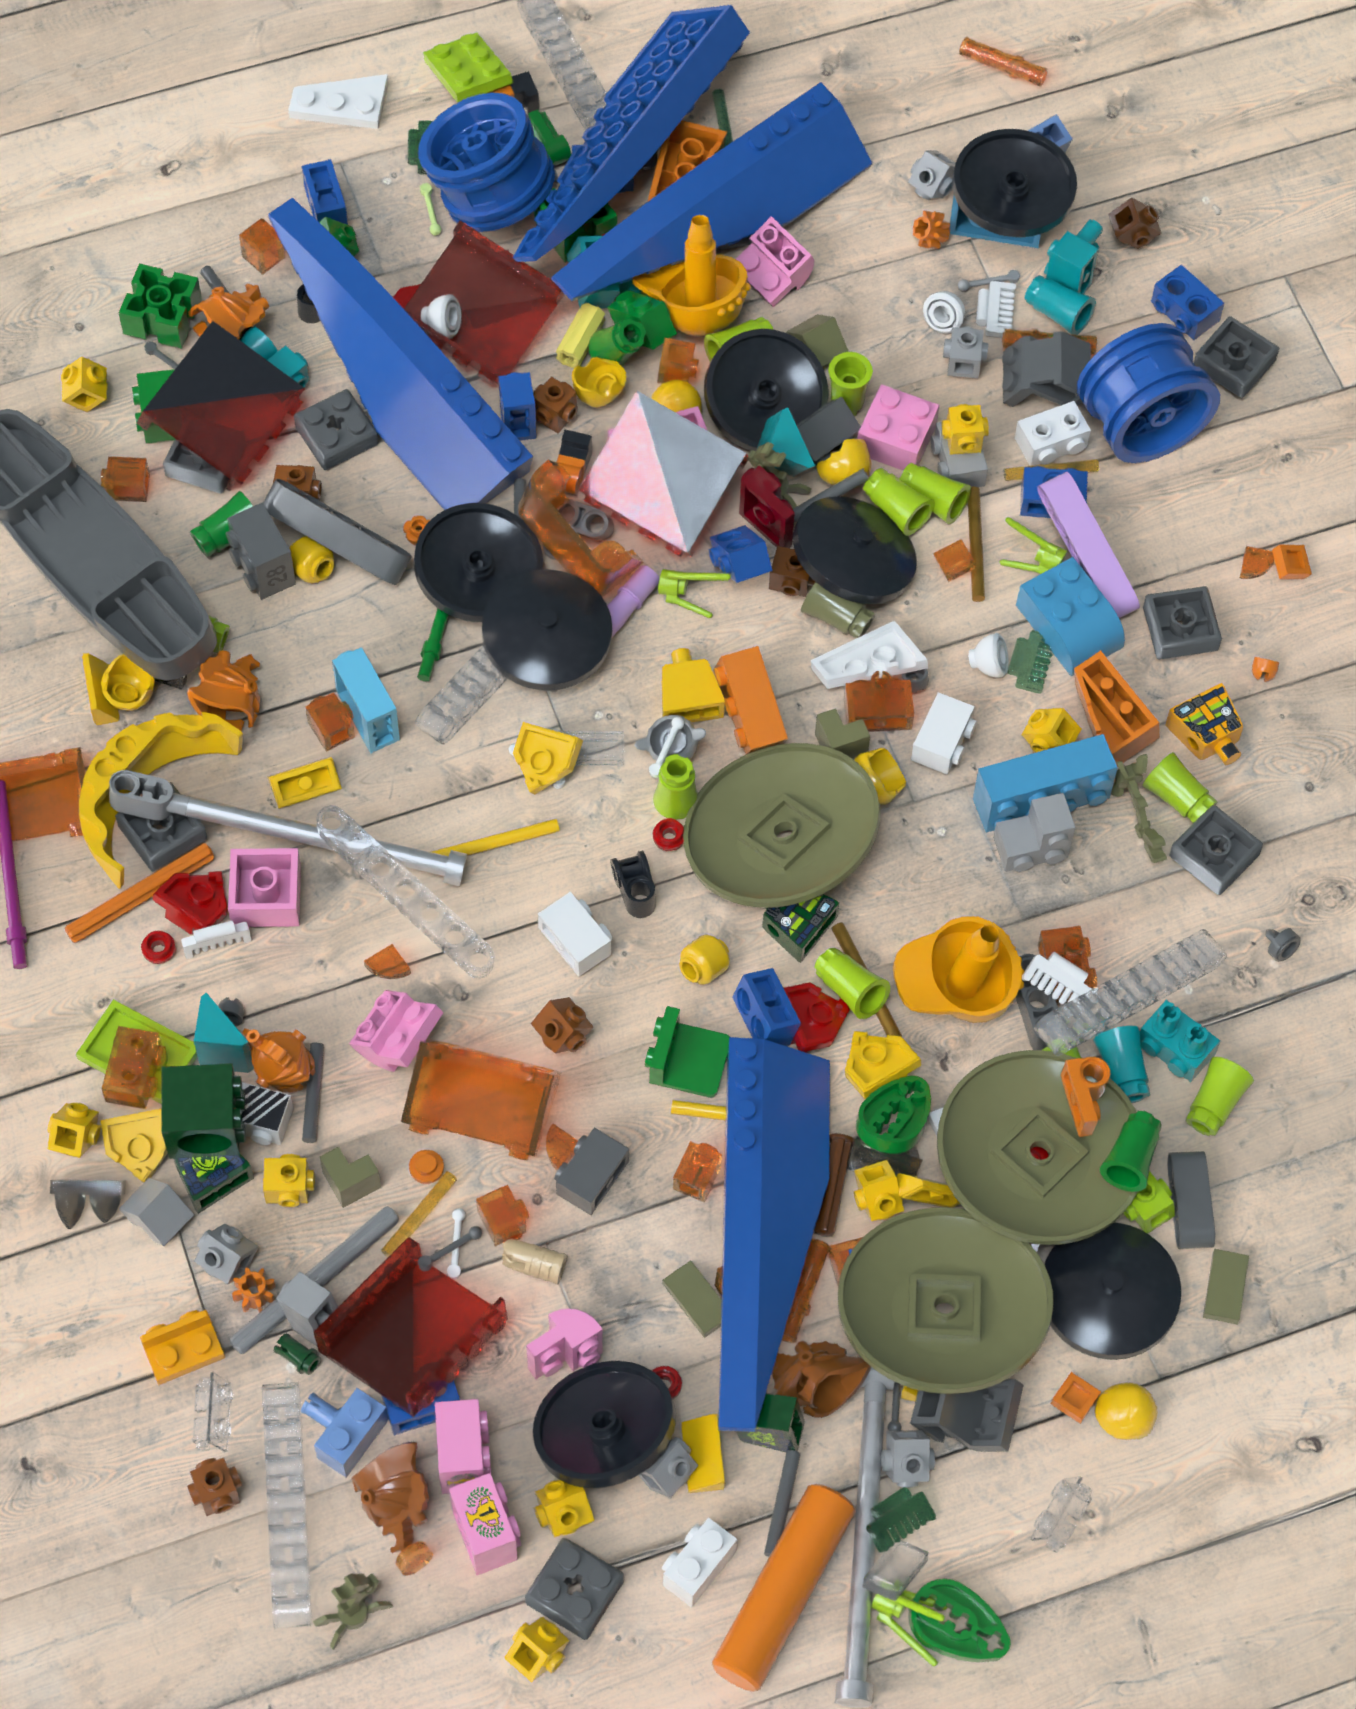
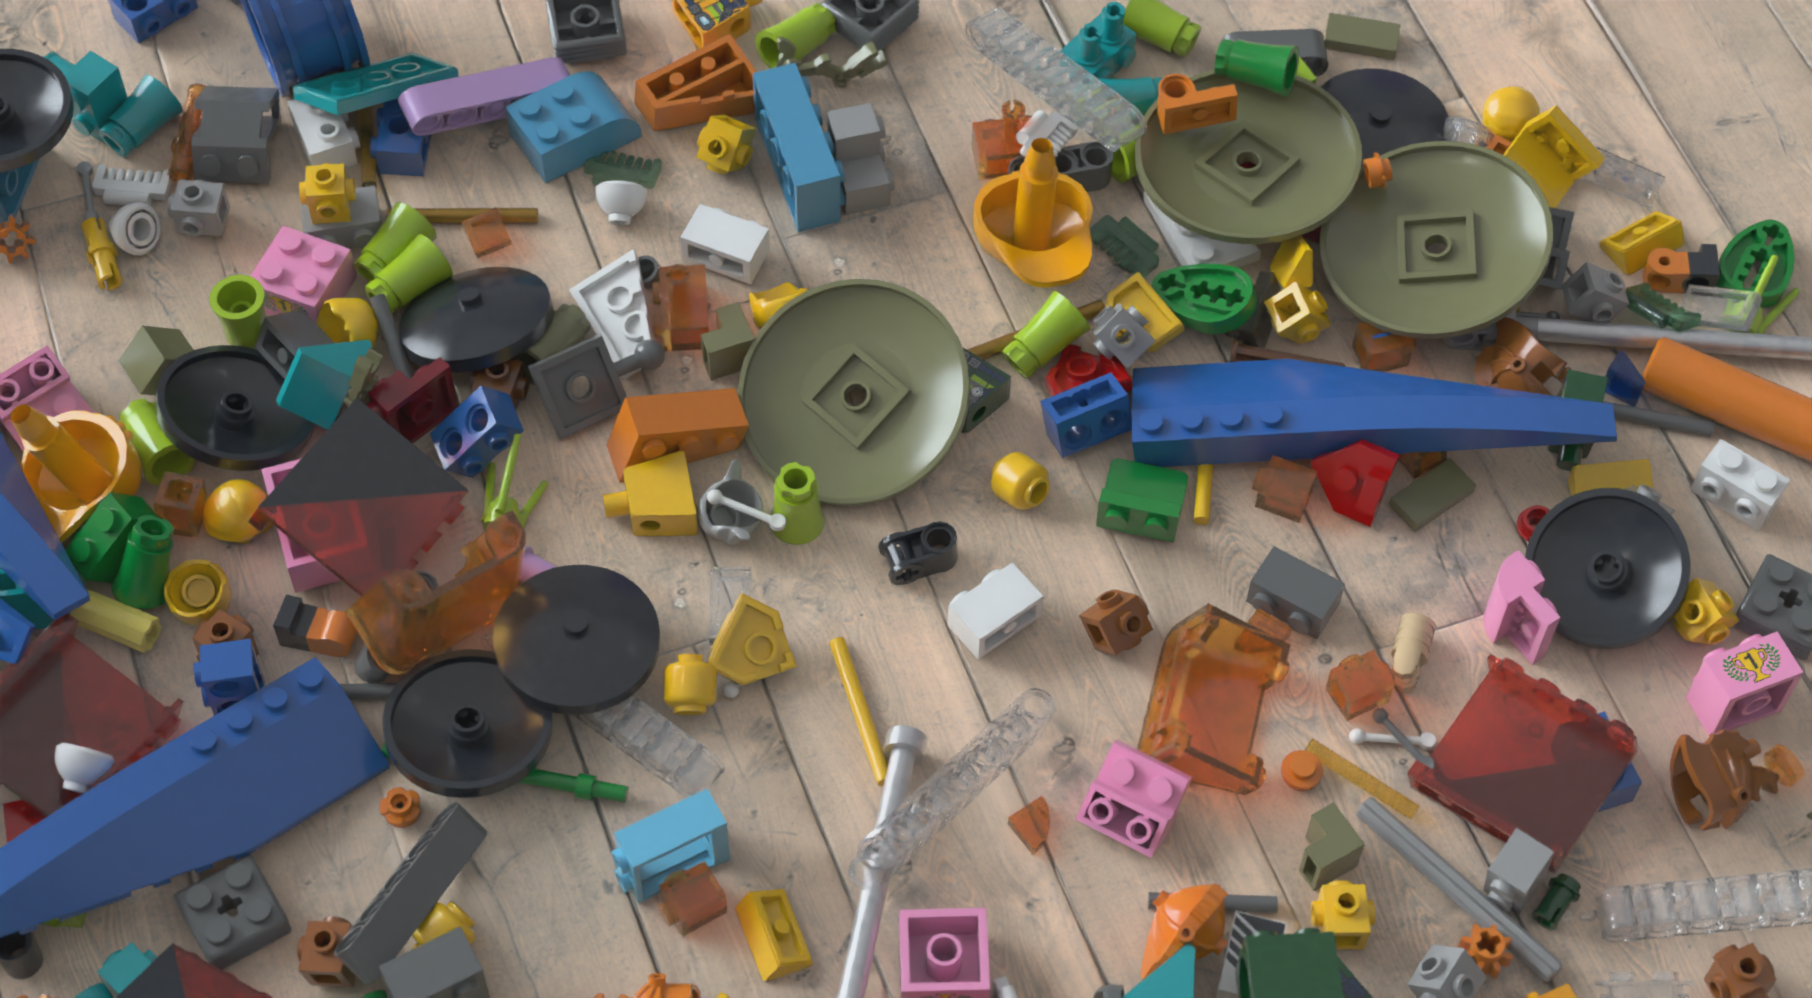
camera: 90 degrees left, 5 degrees down
(347, 1430) = (1647, 837): medium blue brick -> none
(460, 1438) = (1661, 704): bright pink brick -> none
(509, 713) = (690, 685): none -> yellow head
(668, 826) = (851, 512): red plate -> none
(698, 1224) = (1356, 478): none -> red plate
(808, 632) = (605, 391): none -> dark grey plate
(821, 1472) = (1624, 380): none -> clear blue slope
(844, 1036) = (1131, 343): none -> light grey brick
(918, 295) = (101, 253): none -> yellow pin
(944, 1548) = (1675, 271): none -> leg
(977, 1056) = (1131, 239): none -> clear green piece
(986, 1523) = (1634, 243): none -> yellow slope
(1014, 1249) = (1377, 171): none -> orange plate
(1048, 553) = (485, 145): lime plant -> none
(1060, 1427) = (1554, 153): none -> yellow bracket
(1091, 460) = (372, 84): none -> teal plate
(1097, 1364) = (1467, 131): none -> clear brick
(1135, 223) = (22, 34): reddish brown brick -> none

